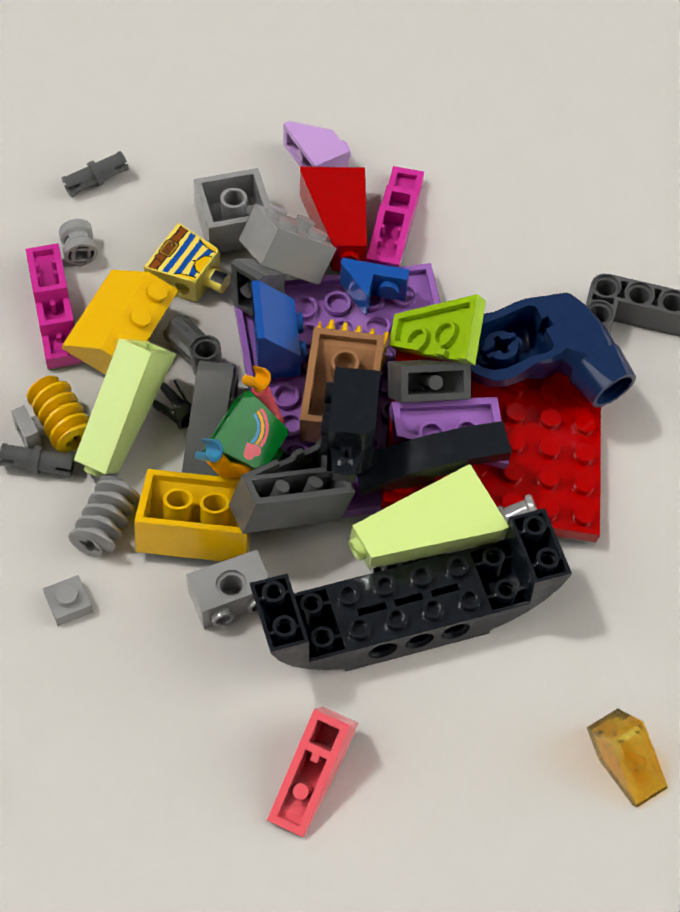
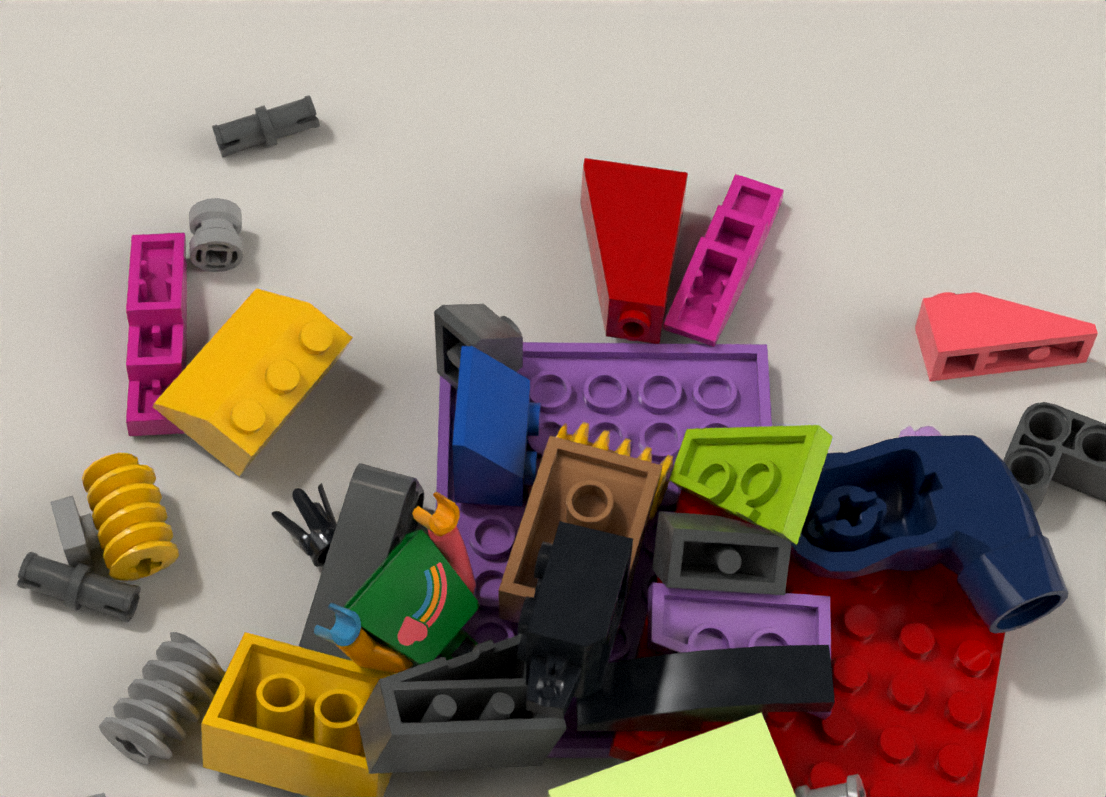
camera: 10 degrees right, 0 degrees up
(122, 404) = (226, 517): yellowish green slope -> none
(188, 264) = (377, 295): torso -> none
(192, 342) = (363, 426): dark grey piece -> none
(225, 205) = (467, 217): light grey brick -> none
(287, 243) = (538, 285): light grey brick -> none
(315, 146) = (618, 127): lavender slope -> none
(367, 279) = (658, 360): blue slope -> none
(565, 240) = (992, 335): none -> coral slope

